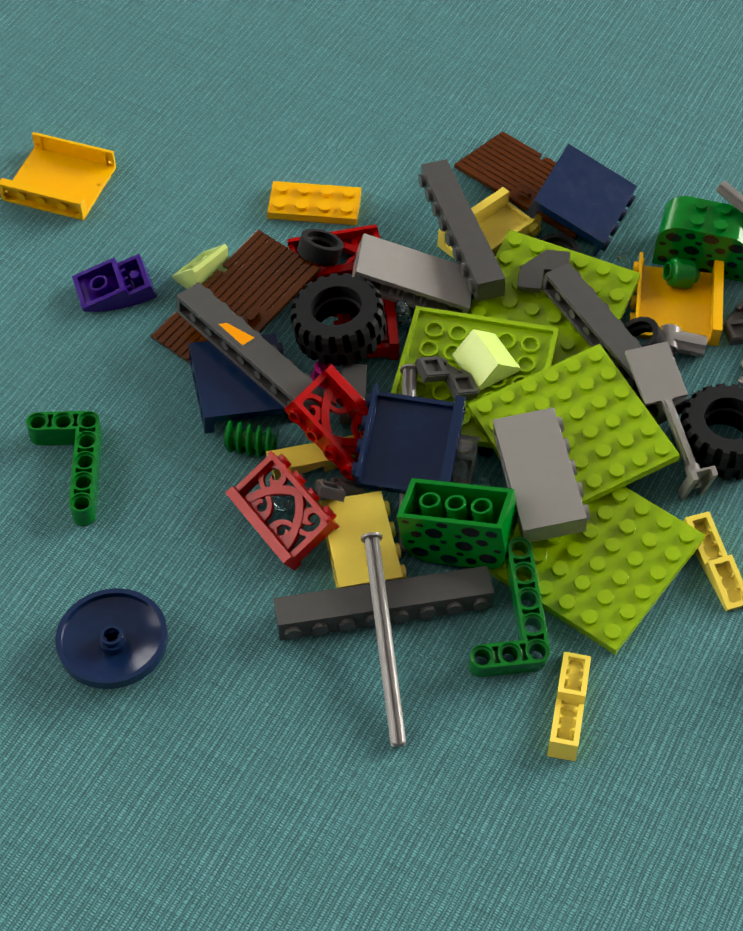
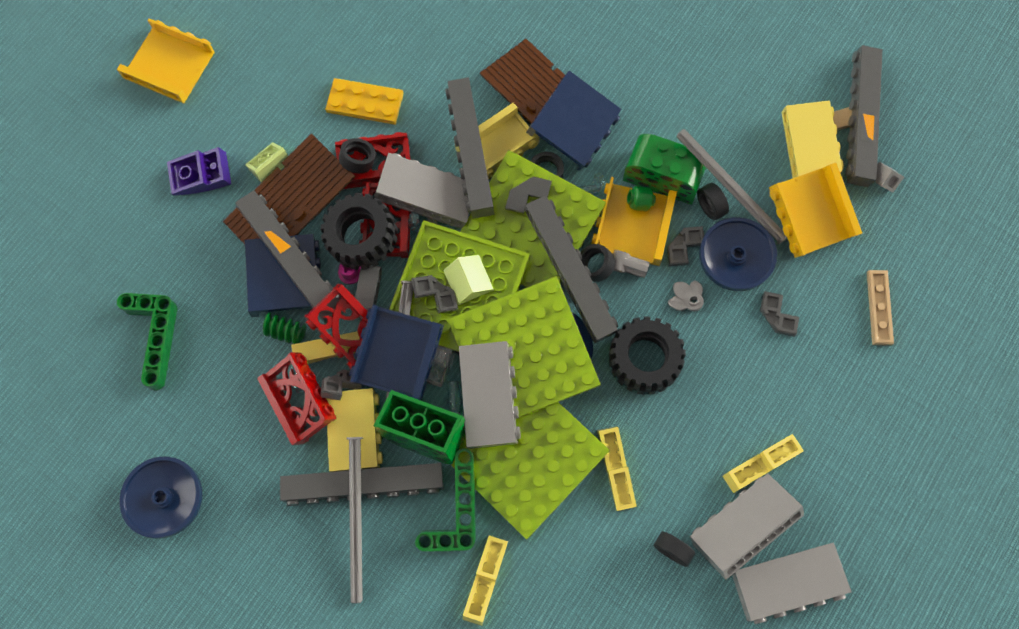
camera: 10 degrees right, 20 degrees up
(661, 382) = (597, 316): light grey piece -> none

